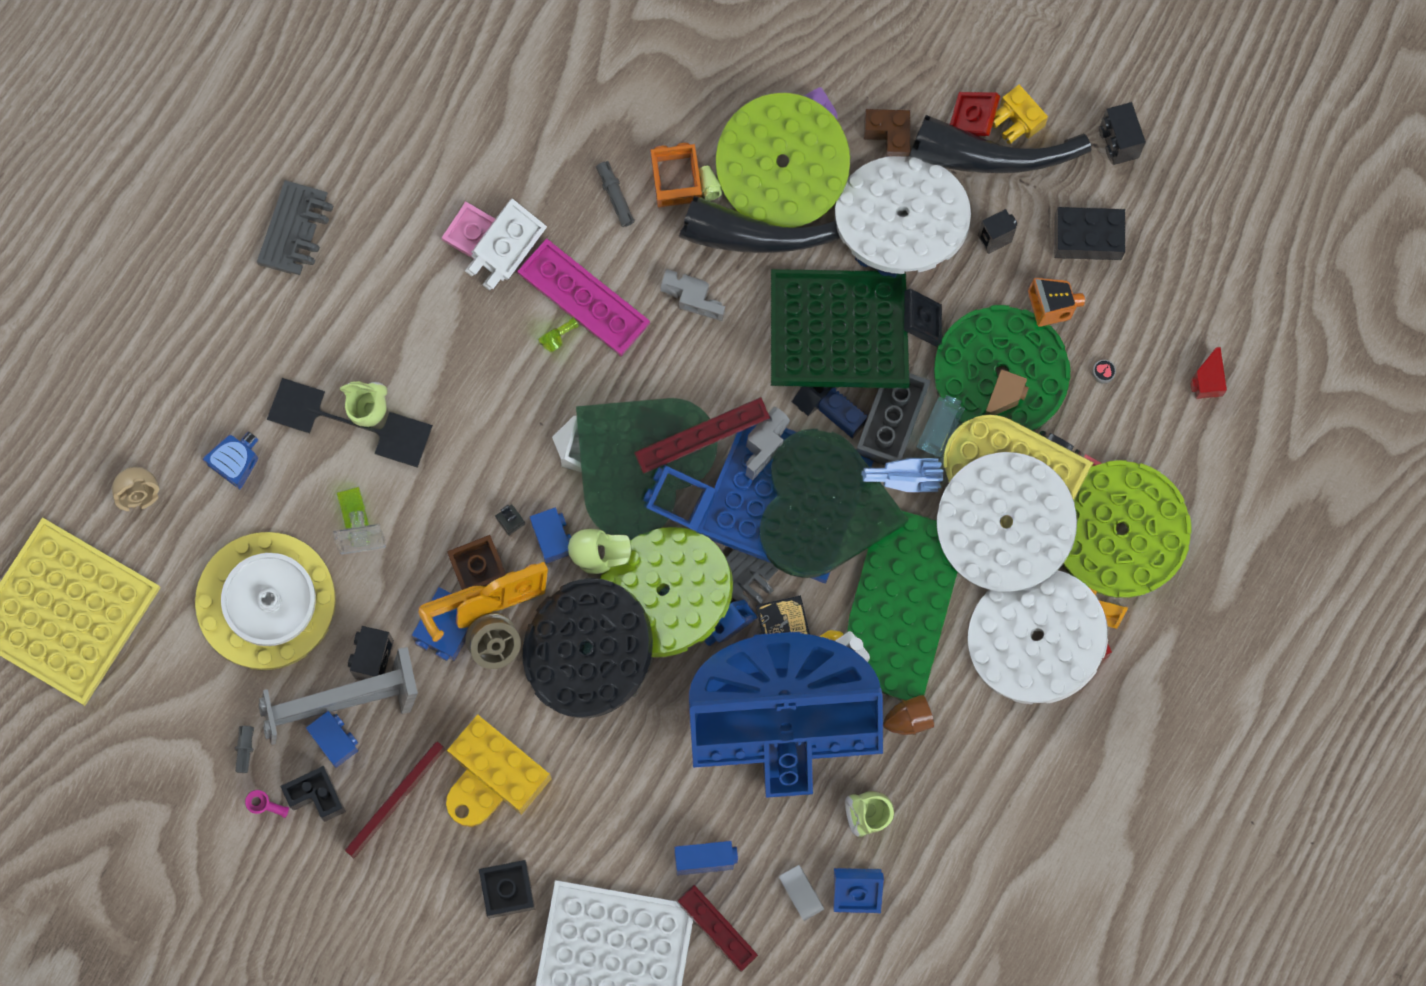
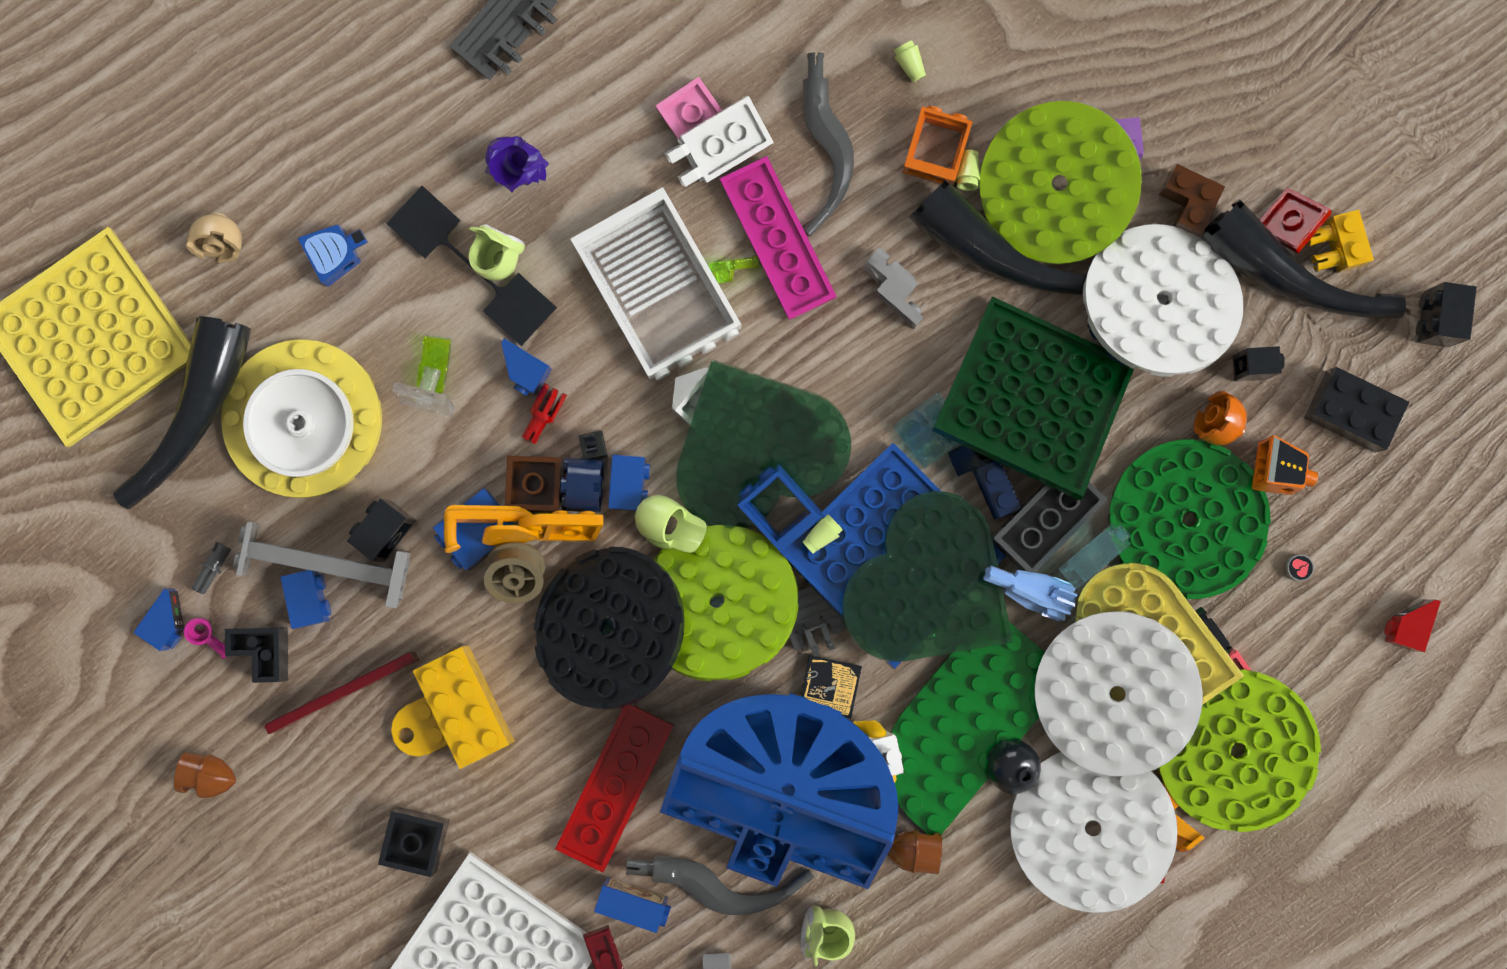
camera: 30 degrees right, 10 degrees up
(178, 594) = (209, 376): none -> black brick
(223, 809) = (162, 622): none -> blue slope
(312, 913) = (205, 773): none -> dark orange helmet
(350, 327) = (514, 162): none -> dark purple hair
(428, 482) = (524, 369): none -> blue slope
(458, 514) = (540, 416): none -> red arm
(504, 373) = (657, 284): none -> clear window
(515, 548) = (582, 485): none -> dark blue brick
(588, 202) = (829, 134): none -> dark grey animal
(612, 187) = (862, 143): dark grey pin -> none
(625, 120) = (910, 60): none -> yellowish green cone
(648, 776) = (614, 787): none -> red plate
(702, 435) = (833, 451): dark red tile -> none
(722, 502) = (823, 533): none -> yellowish green cone
(736, 619) = (783, 665): blue torso -> none
(759, 823) = (707, 888): none -> dark grey animal
(760, 386) = (918, 435): none -> clear light blue slope
(765, 440) = (898, 485): light grey plate -> none
(923, 317) = (1131, 424): black tile -> none
(954, 617) = (1013, 766): none -> black cylinder
(992, 285) = (1222, 419): none -> orange cylinder
(1007, 393) = (1184, 547): medium nougat slope -> none

